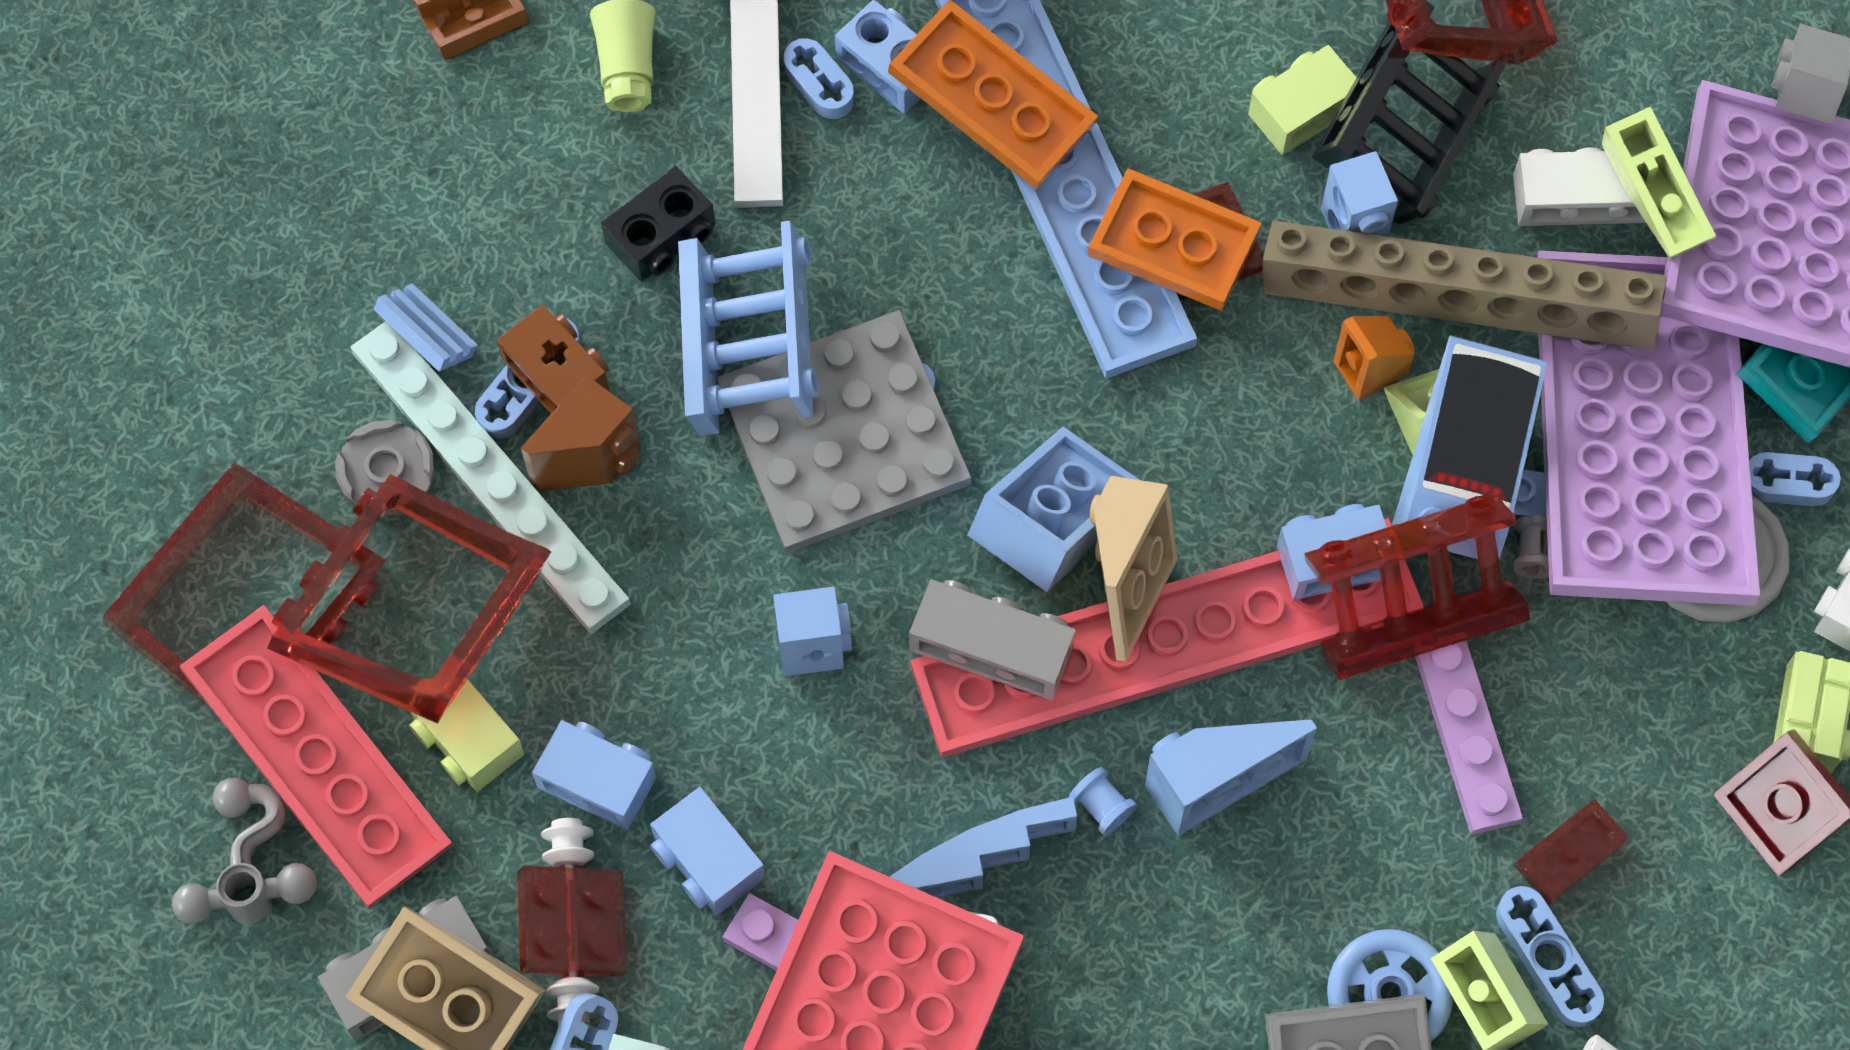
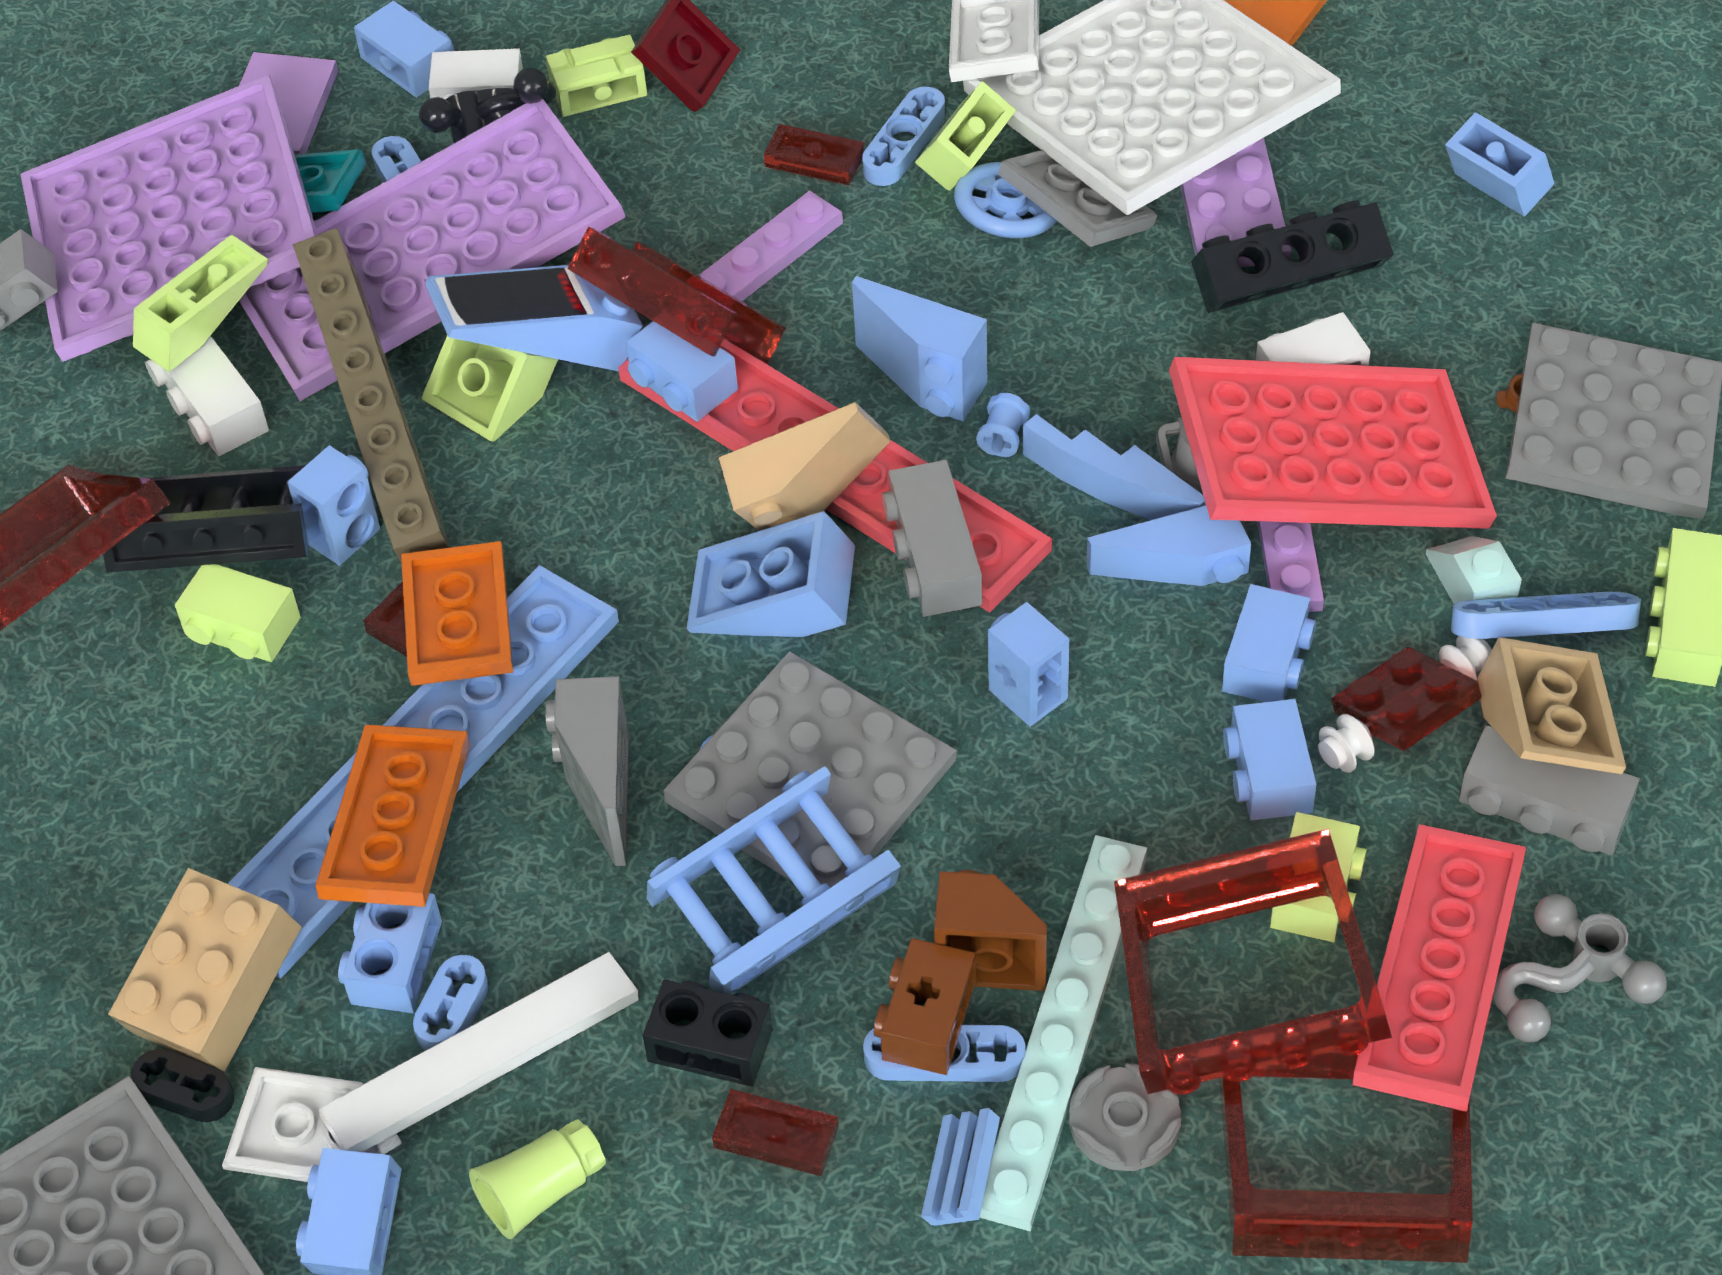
camera: 120 degrees left, 15 degrees down
(547, 226) = (775, 1132): none -> clear red plate
(866, 831) = (1173, 550): none -> light blue slope
(945, 260) = (593, 745): none -> light grey slope
(1372, 353) = (475, 439): orange slope -> none
(1793, 549) = (473, 110): none -> black piece

